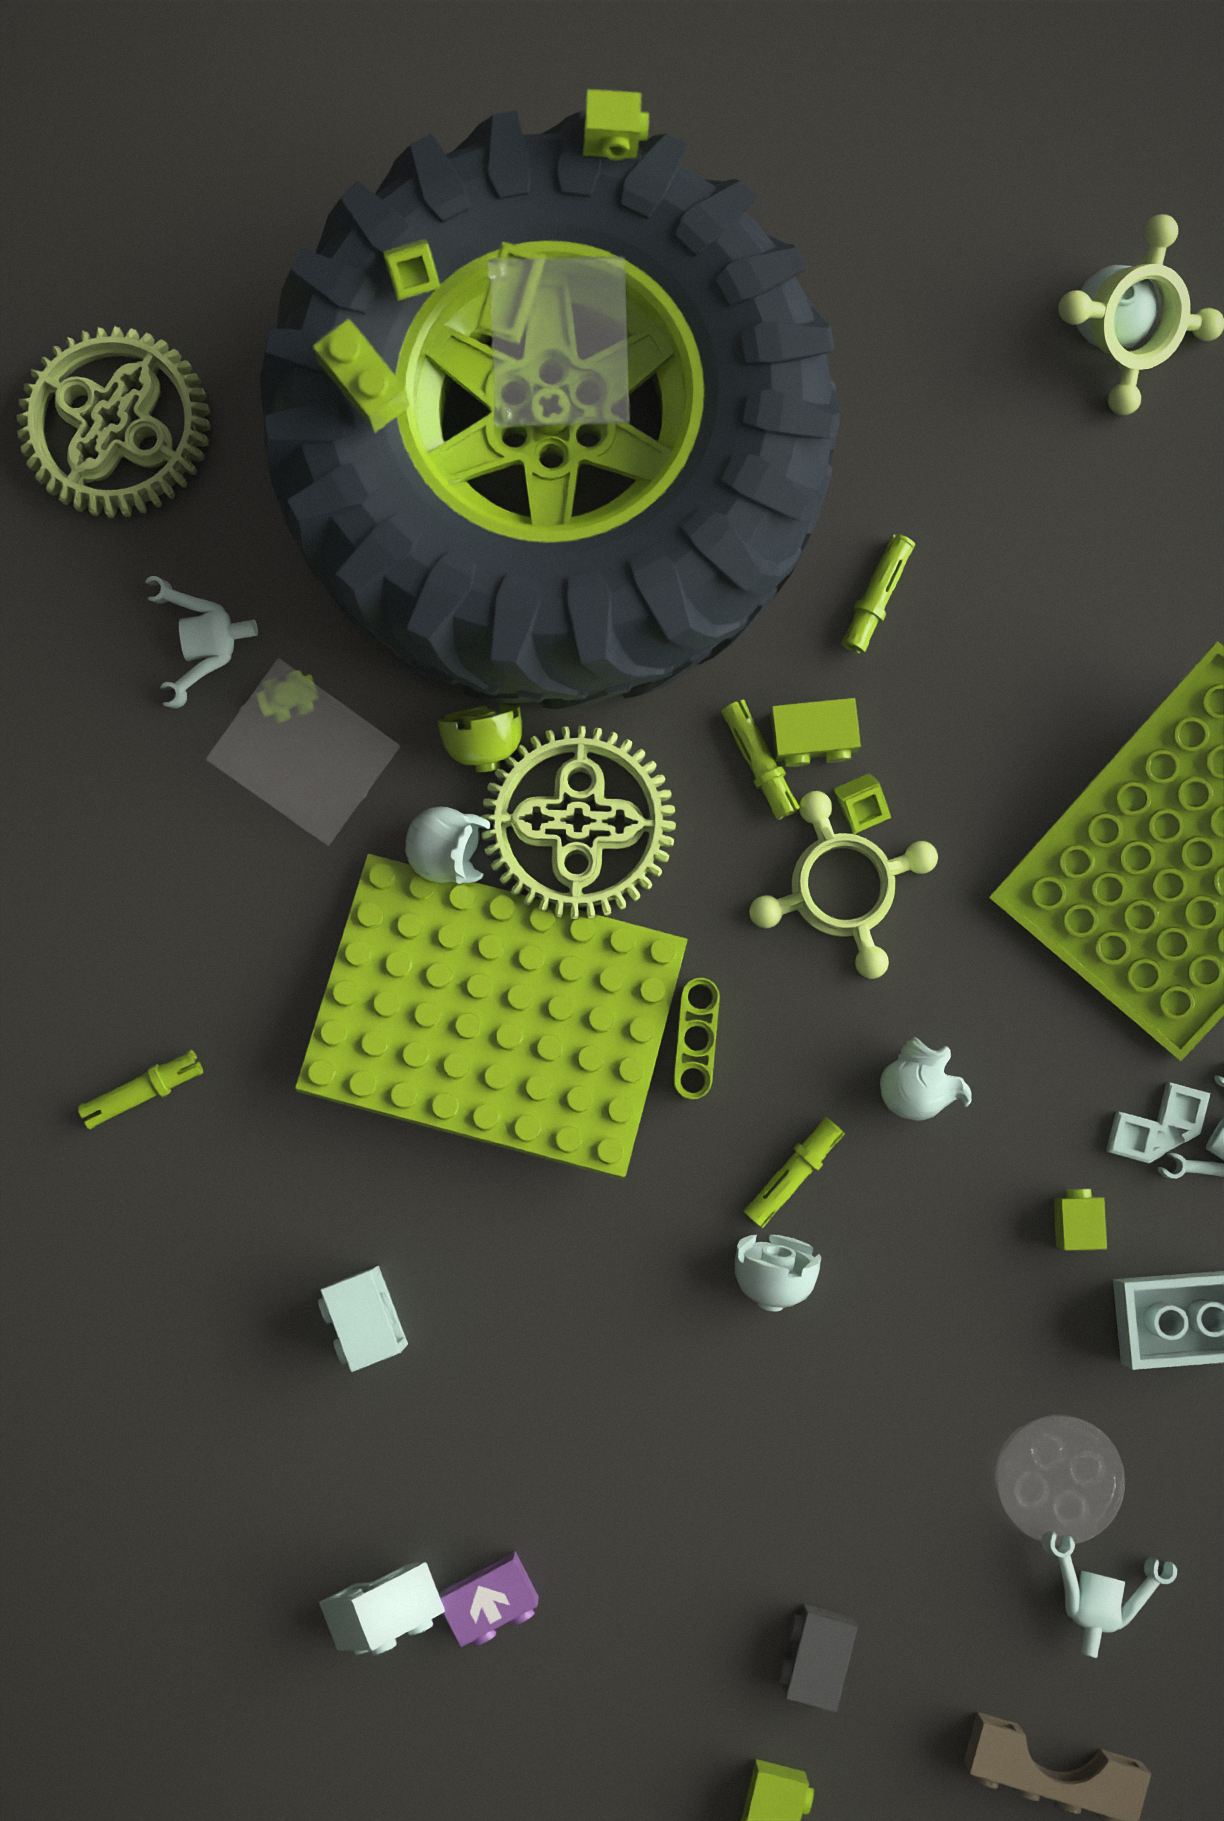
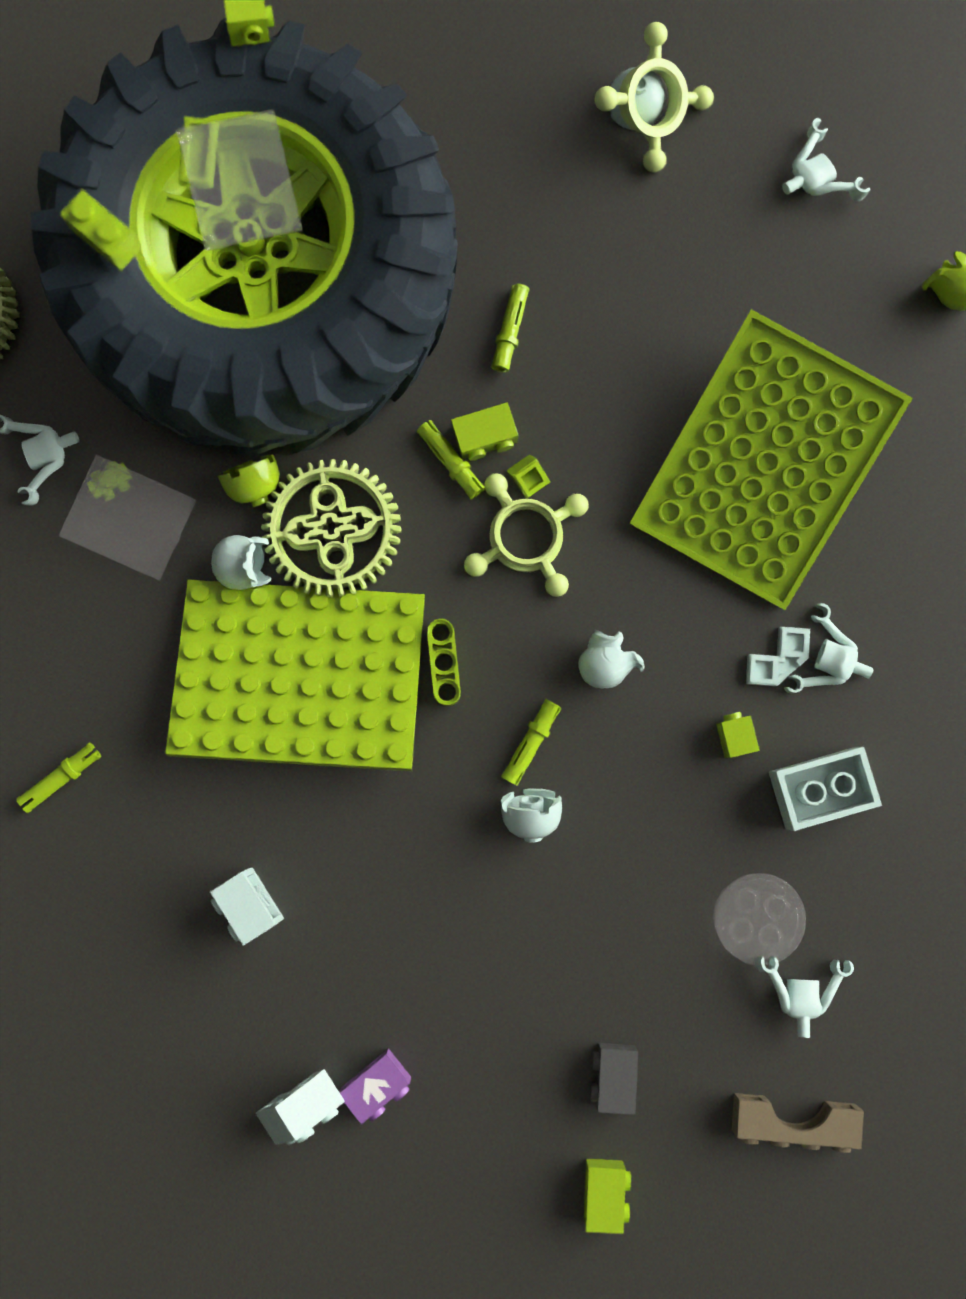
camera: 15 degrees left, 0 degrees up
(411, 269) = (124, 150): lime slope -> none

